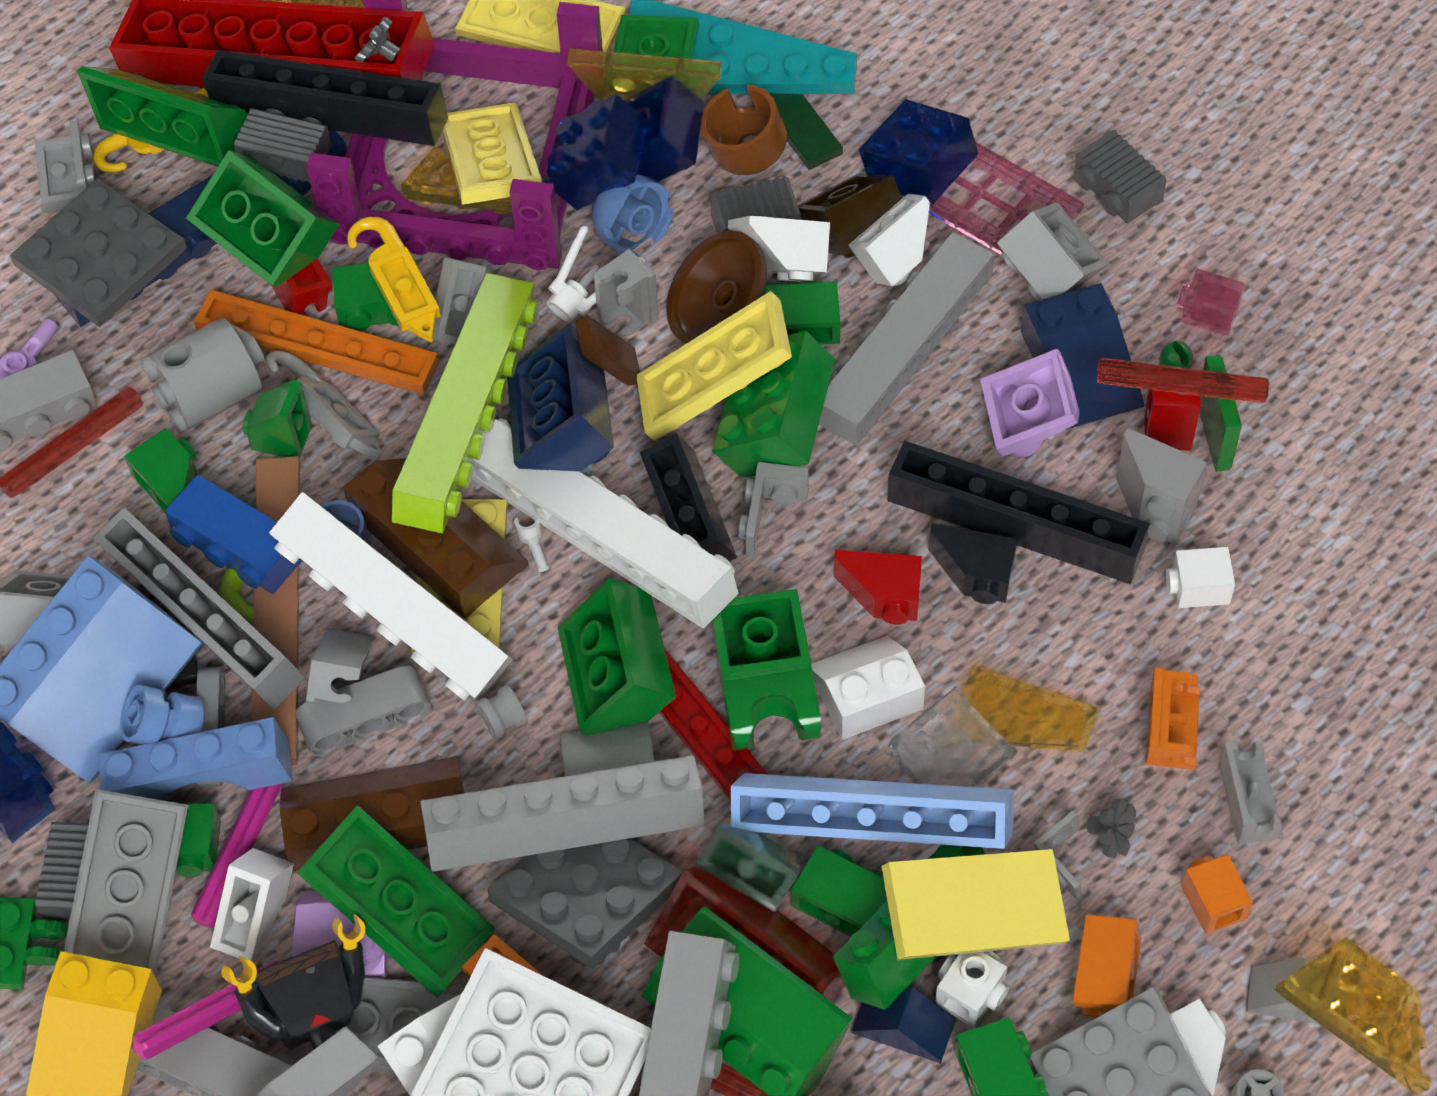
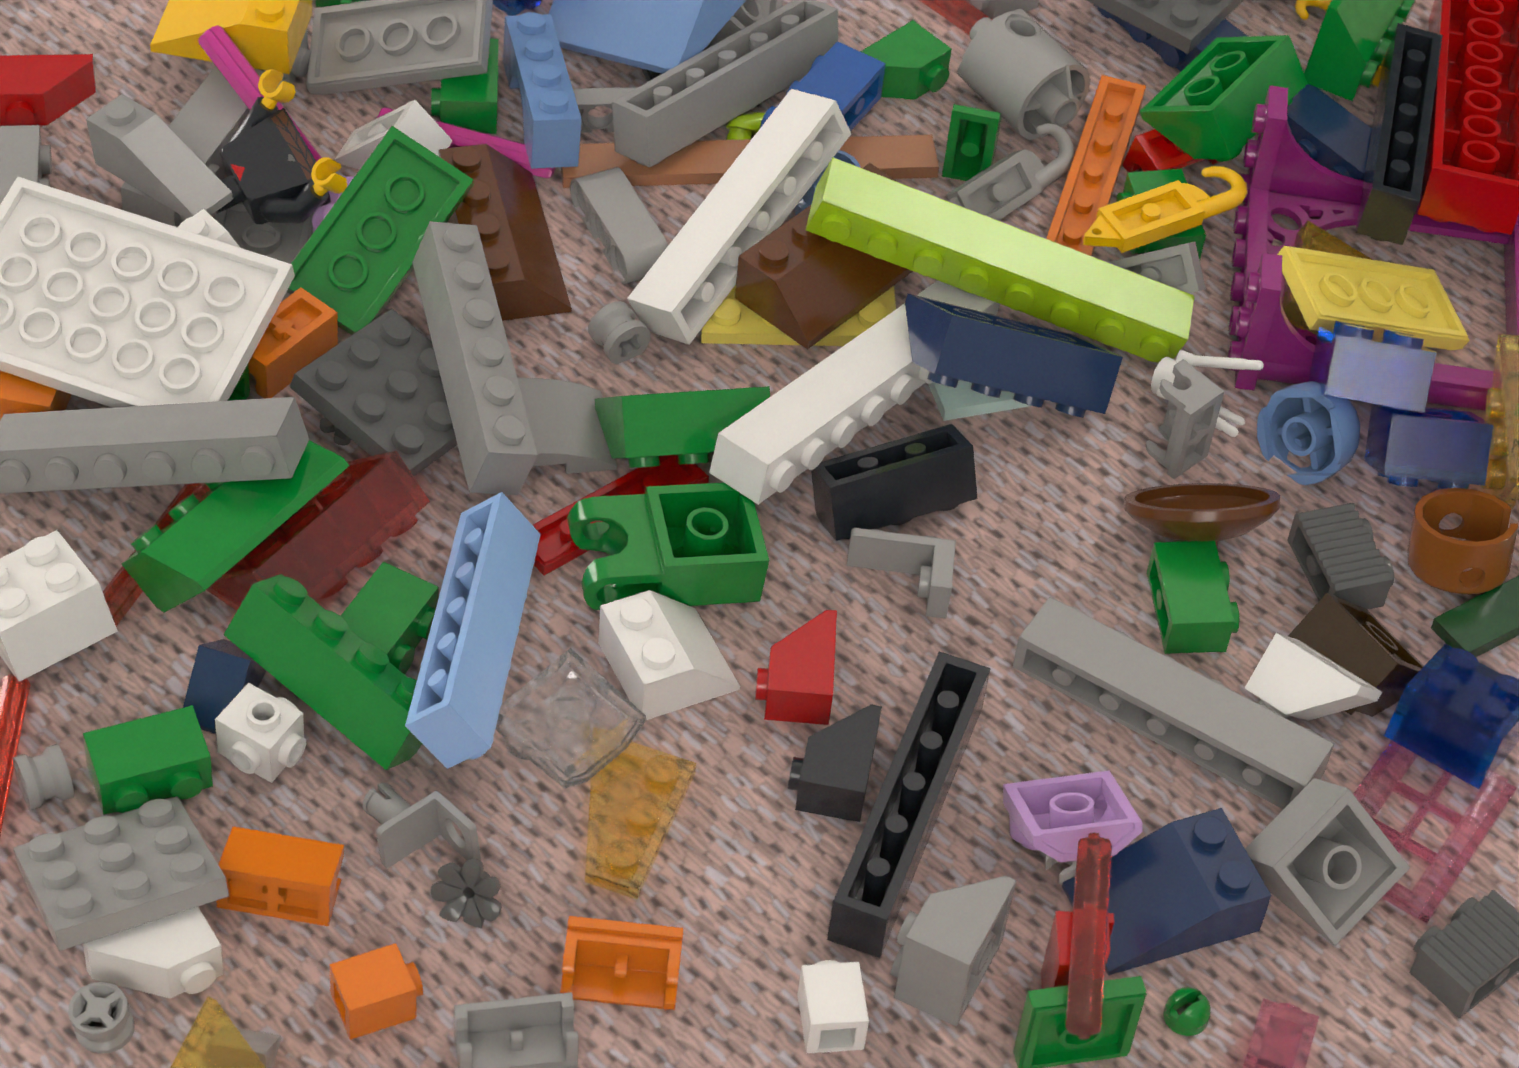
camera: 80 degrees right, 10 degrees down
(153, 717) = (591, 51): medium blue wheel -> none
(282, 141) = (1335, 108): dark grey brick -> none
(337, 656) = (661, 177): light grey hinge -> none
(379, 43) = (1461, 136): dark grey plant -> none
(607, 350) = (1100, 406): reddish brown tile -> none
(713, 366) = (1079, 487): light yellow plate -> none
(750, 864) = (413, 522): clear green slope -> none
(778, 412) = (1039, 552): green brick -> none
(790, 246) = (1271, 555): white slope -> none
(975, 903) = (341, 707): light yellow tile -> none

